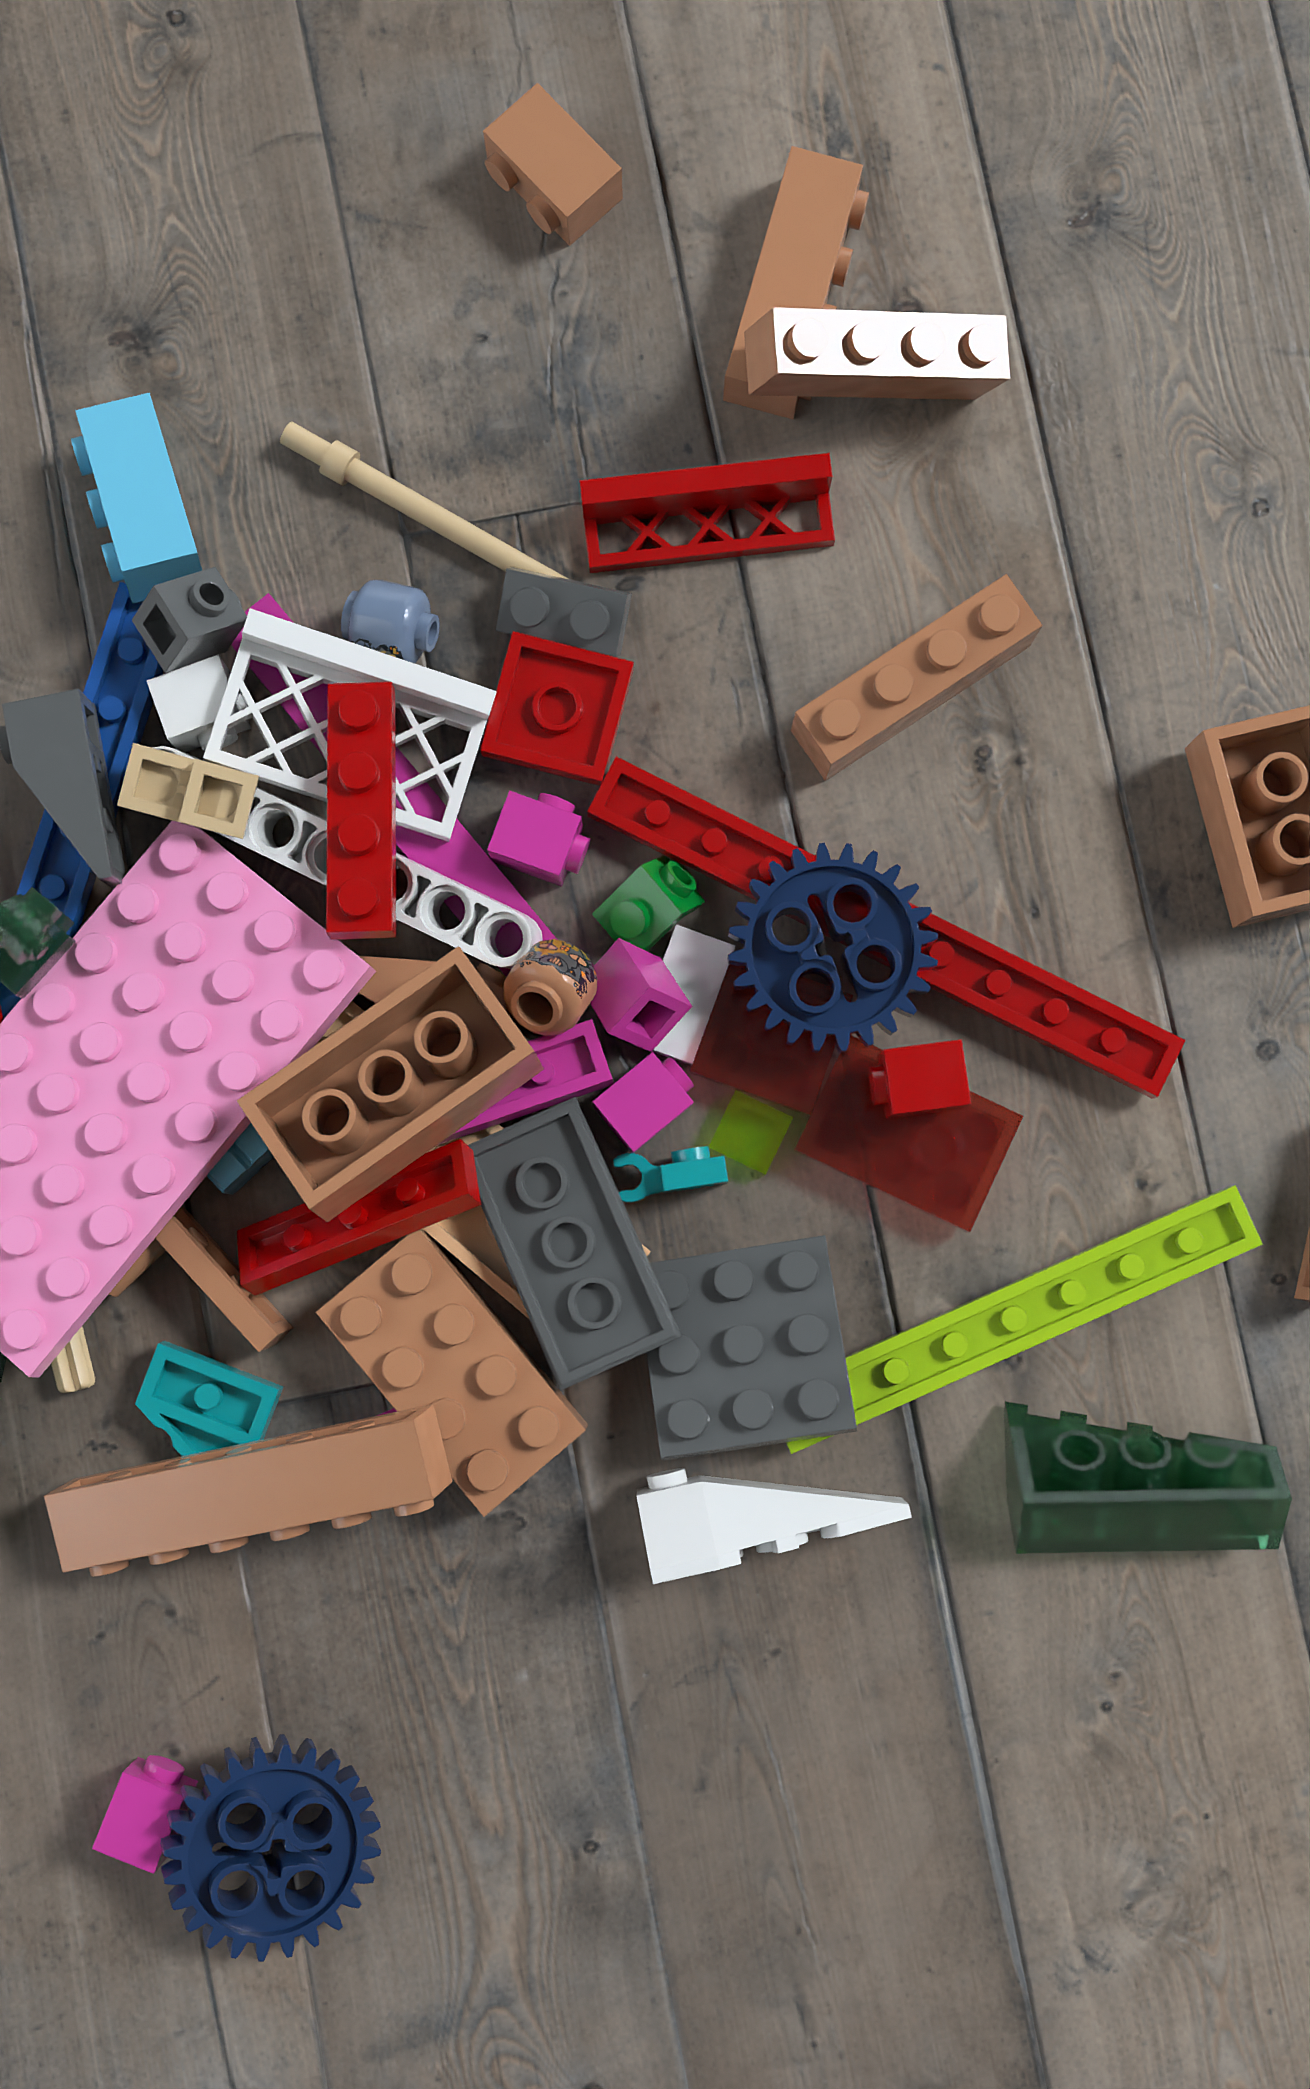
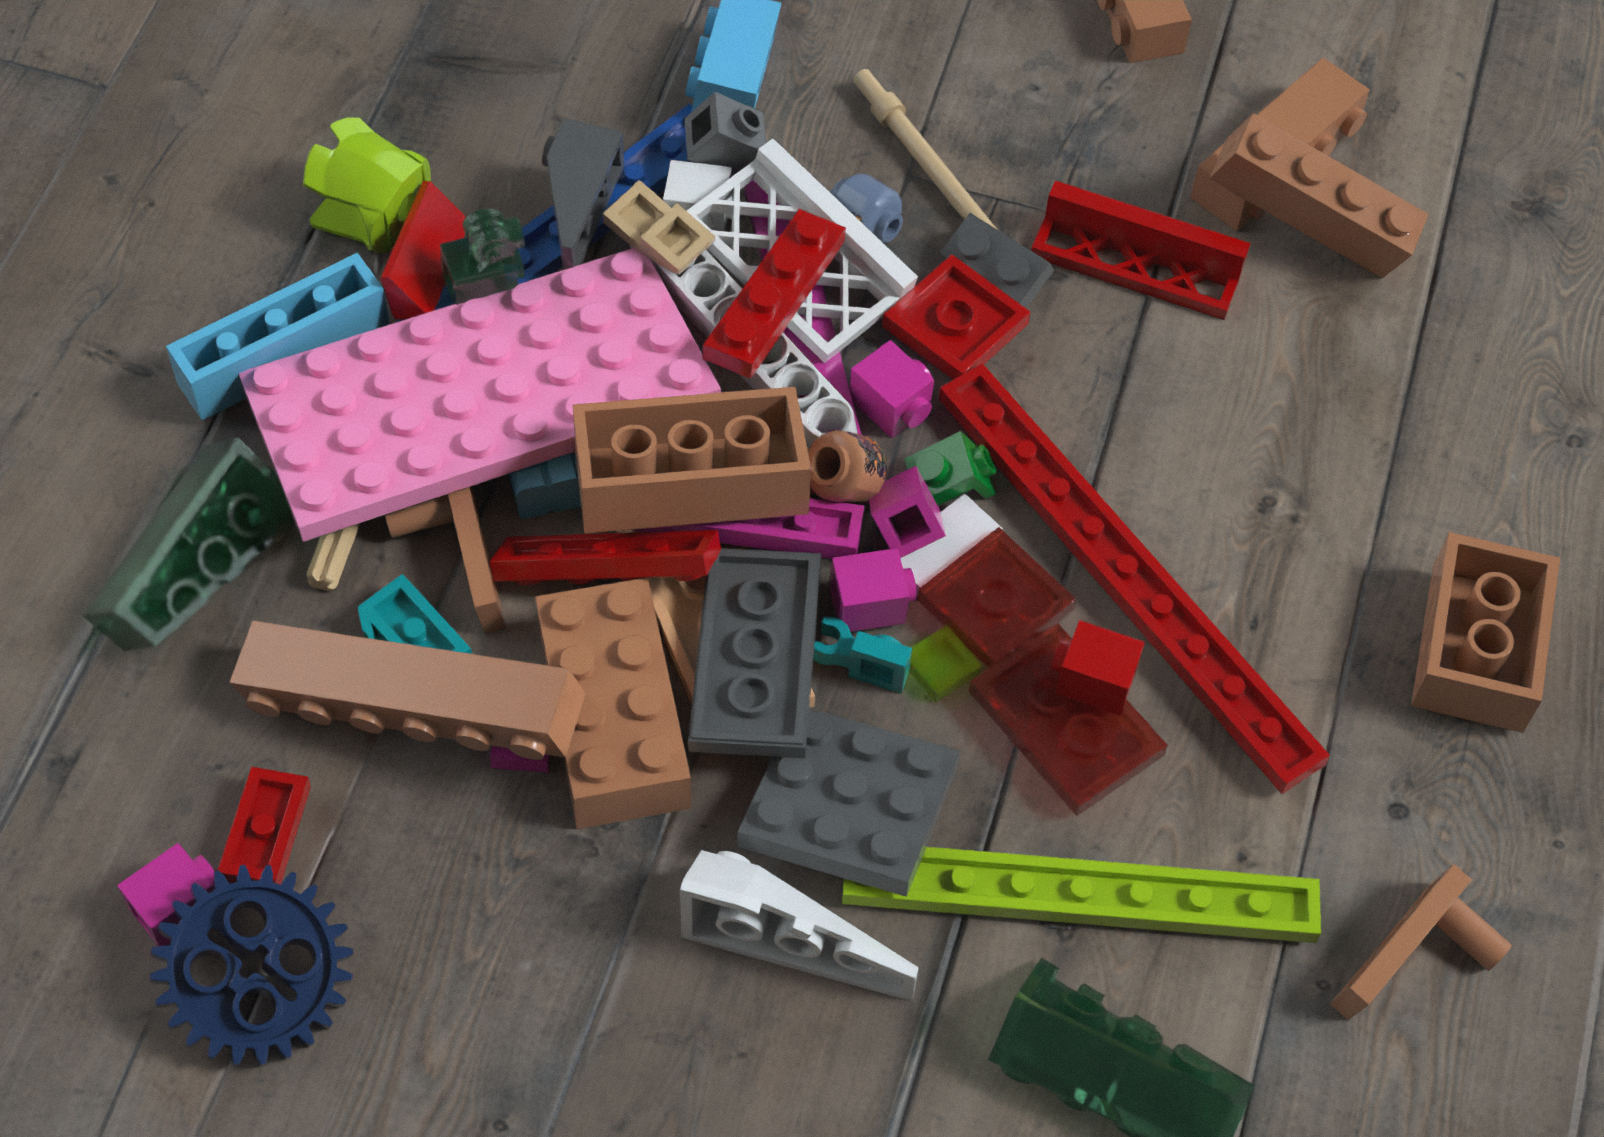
camera: 25 degrees right, 25 degrees down
(191, 1690) = (265, 824): none -> red plate
(887, 929) = (1129, 554): dark blue gear -> none
(915, 677) = (1240, 416): nougat brick -> none

